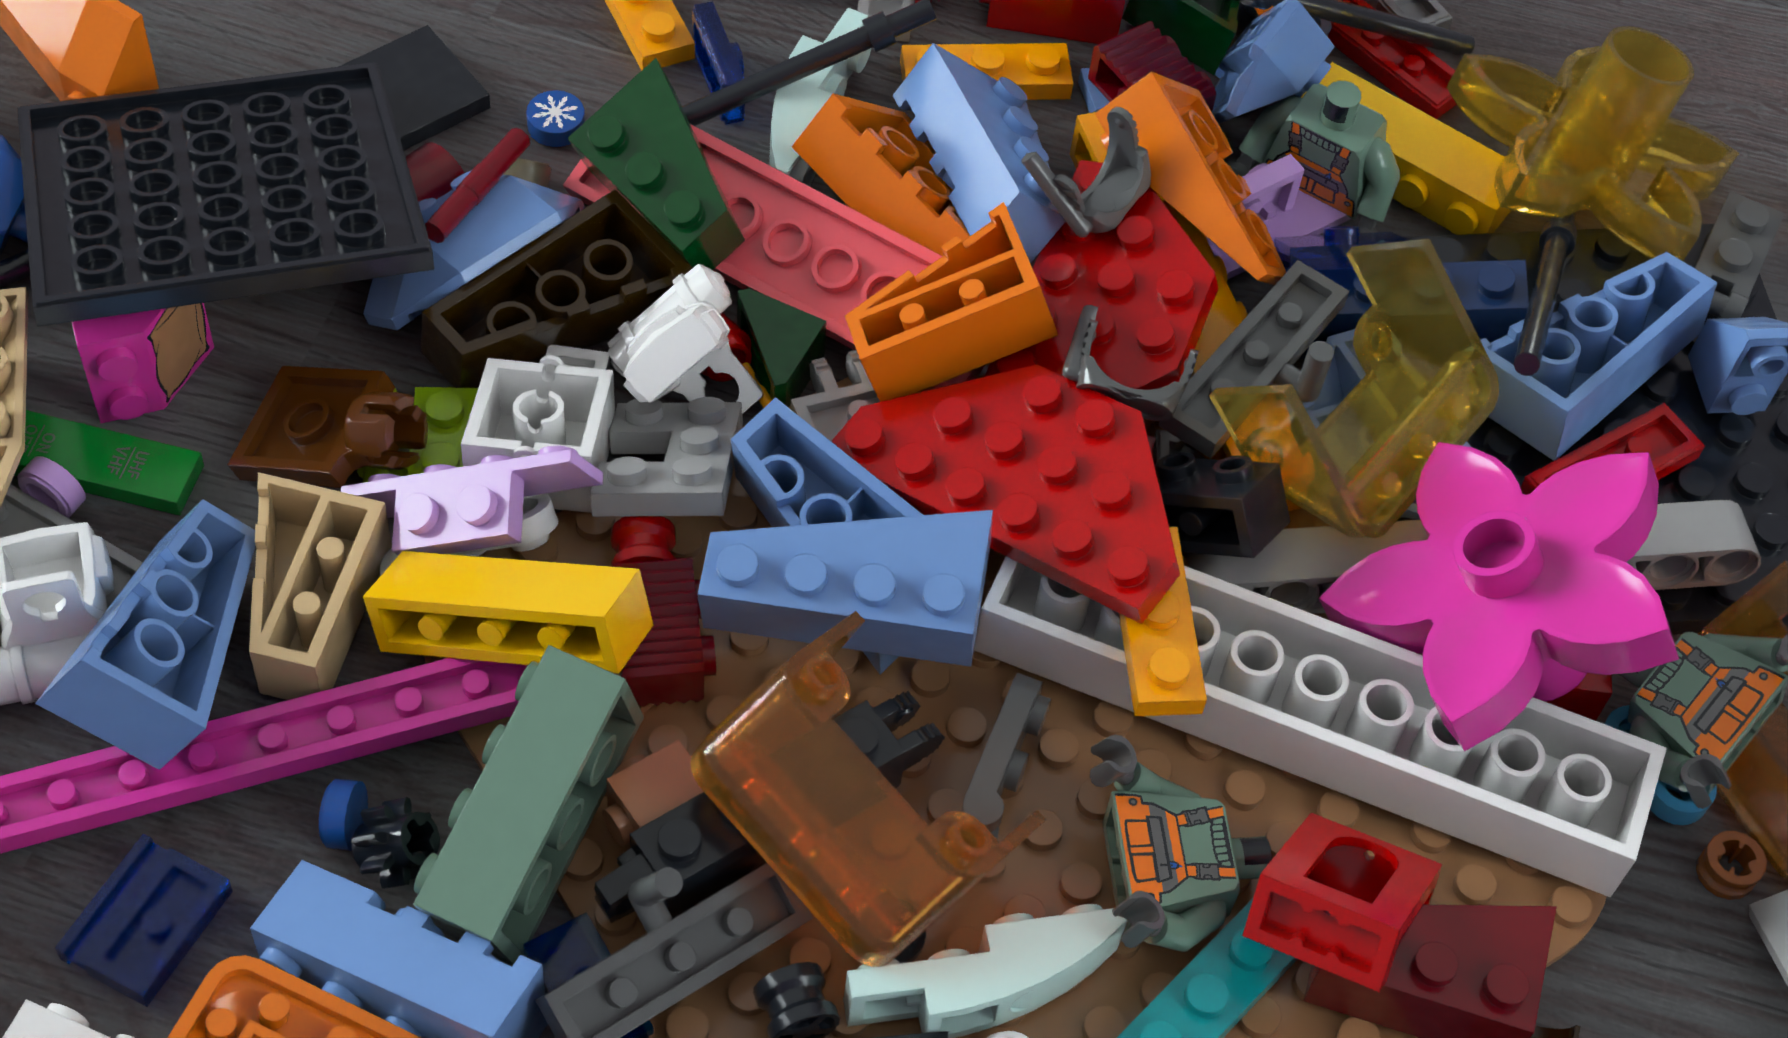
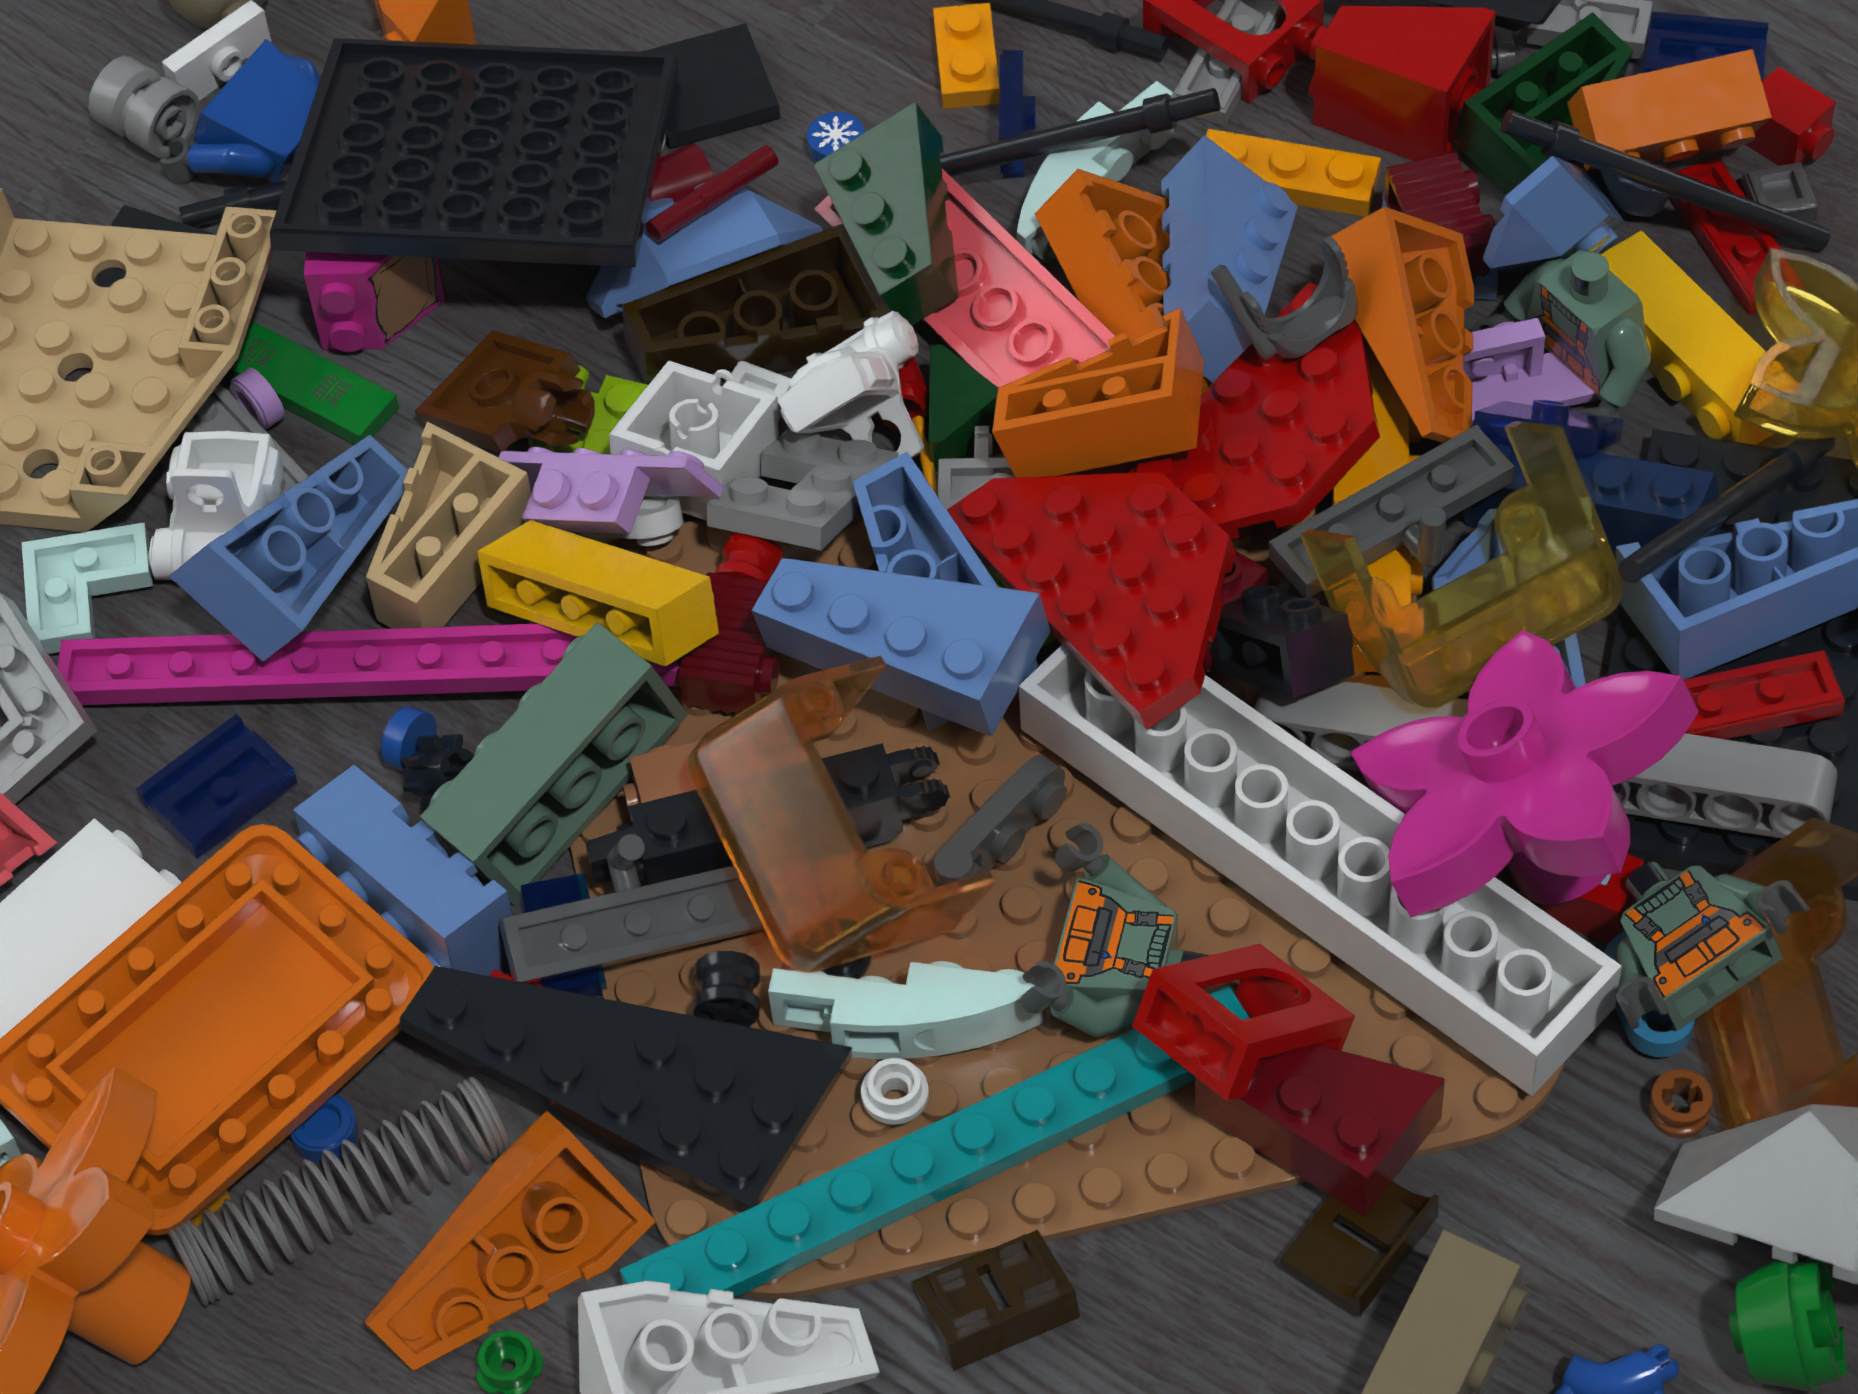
camera: 30 degrees right, 0 degrees up
(531, 171) = (781, 188): dark tan tile -> none
(1081, 367) = (1256, 532): dark grey helmet -> none
(1165, 654) = (1170, 753): light orange plate -> none

